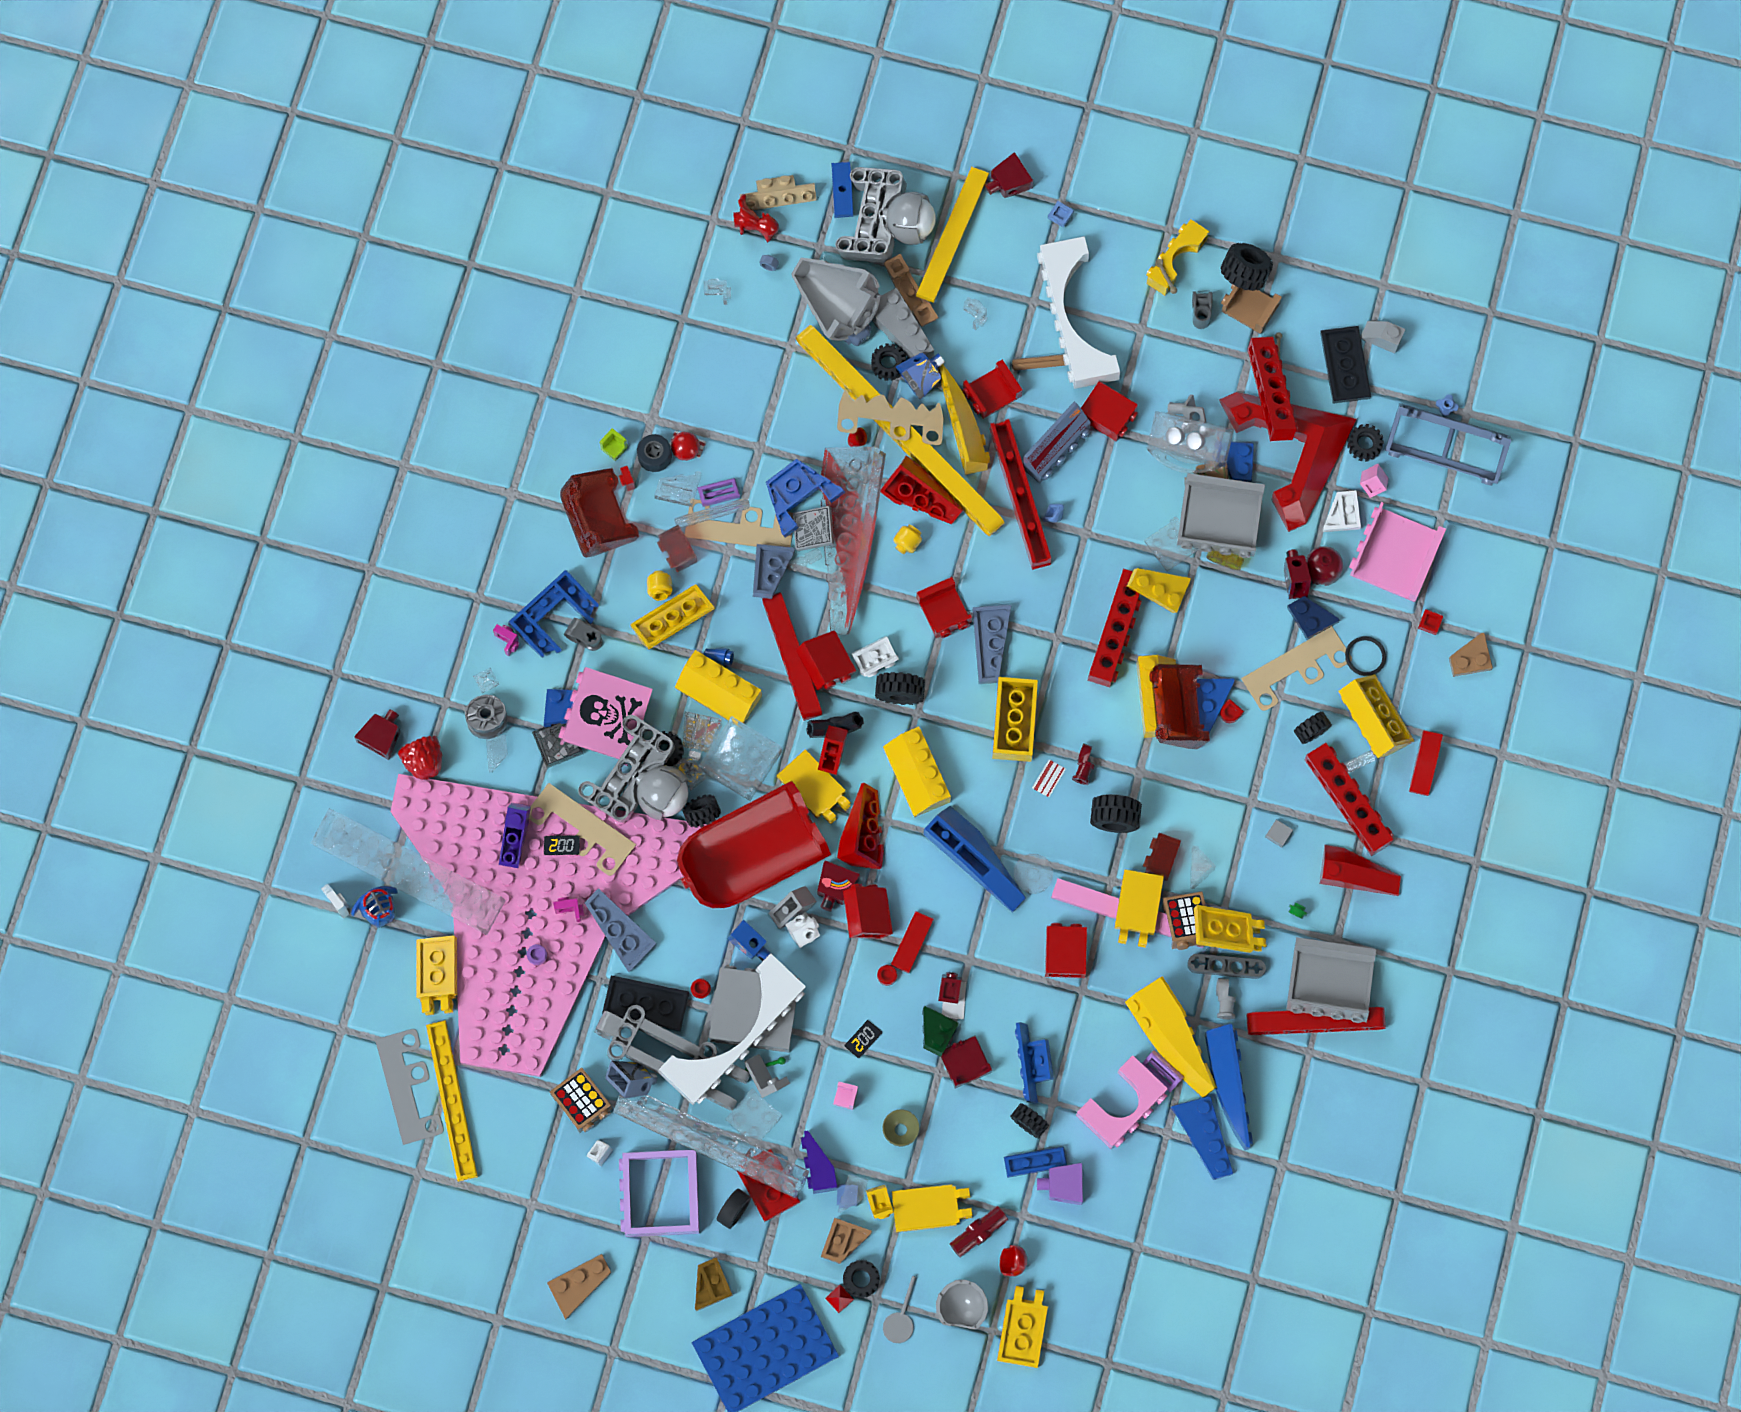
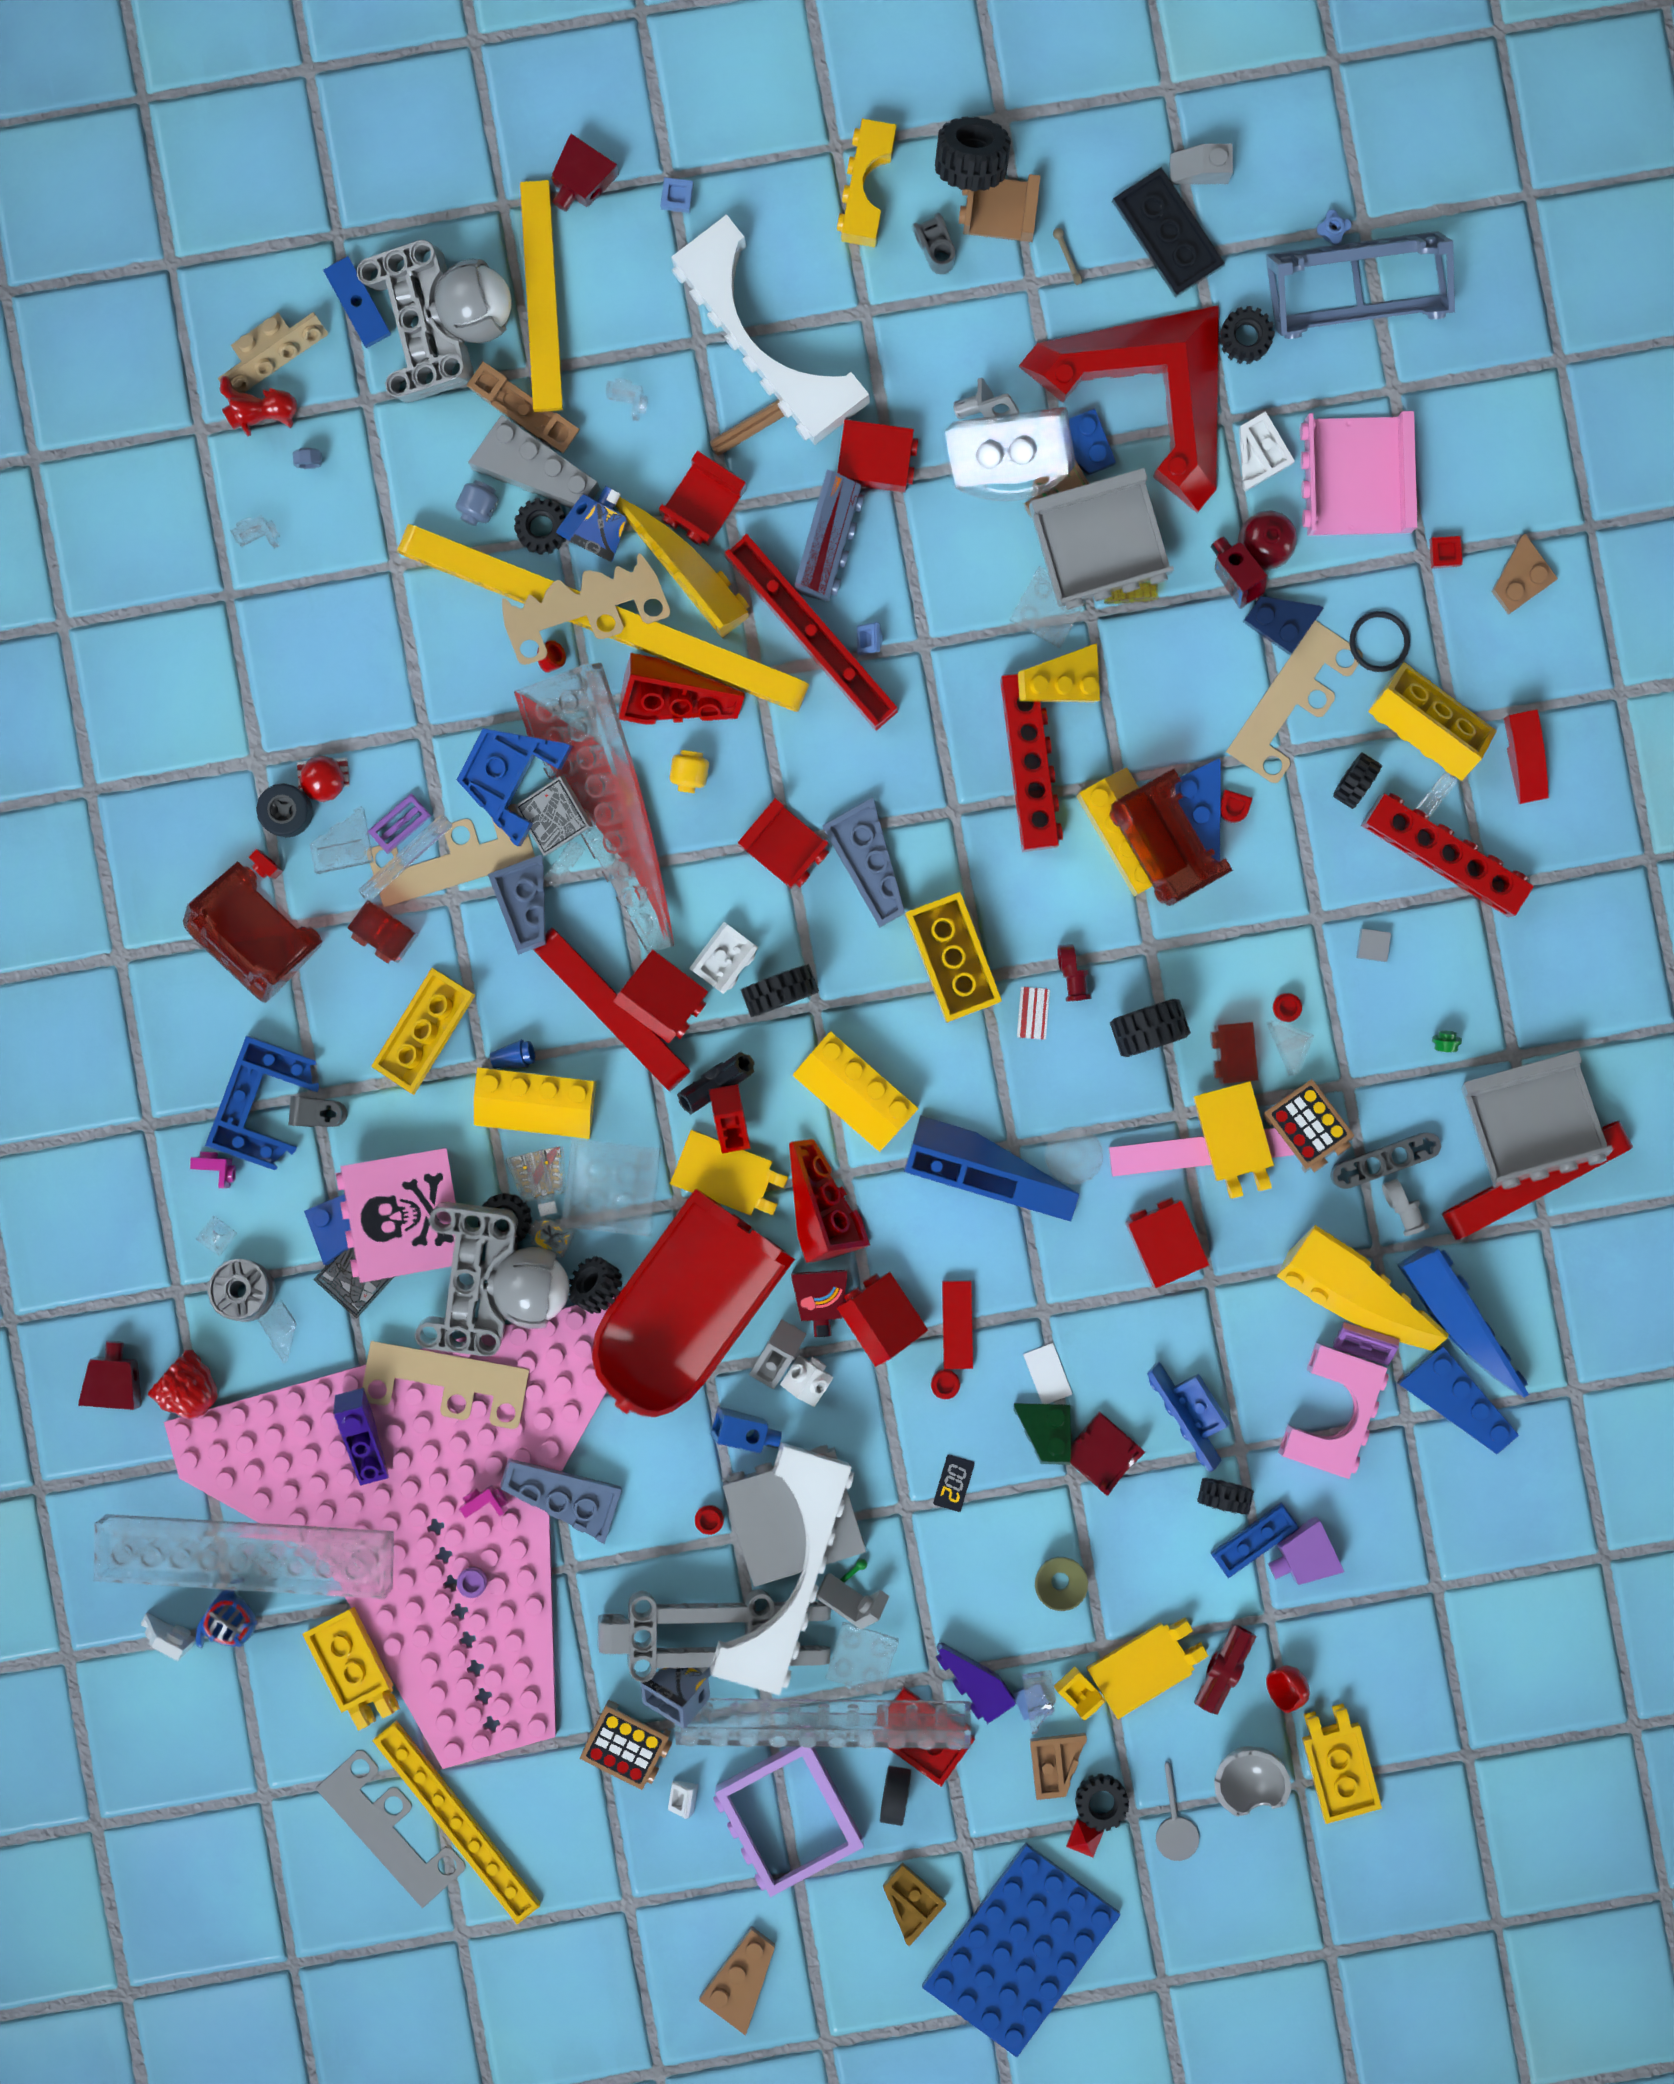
camera: 25 degrees left, 15 degrees up
(561, 845) = (430, 1418): black sticker -> none
(613, 444) = (223, 825): lime panel -> none
(659, 585) = (384, 995): yellow head -> none
(661, 1004) = (660, 1567): black tile -> none
(838, 296) = (427, 468): light grey cone -> none
(845, 1095) = (968, 1572): bright pink panel -> none
(950, 988) = (1037, 1364): dark red bracket -> none
(1159, 263) = (848, 206): dark tan hinge -> none
(1208, 845) = (1287, 1007): none -> red plate
(1227, 929) = (1369, 1117): yellow tile -> none
(1272, 389) = (1090, 333): red brick -> none
(1353, 871) = (1492, 951): red wedge -> none
(1374, 480) = (1282, 385): bright pink panel -> none

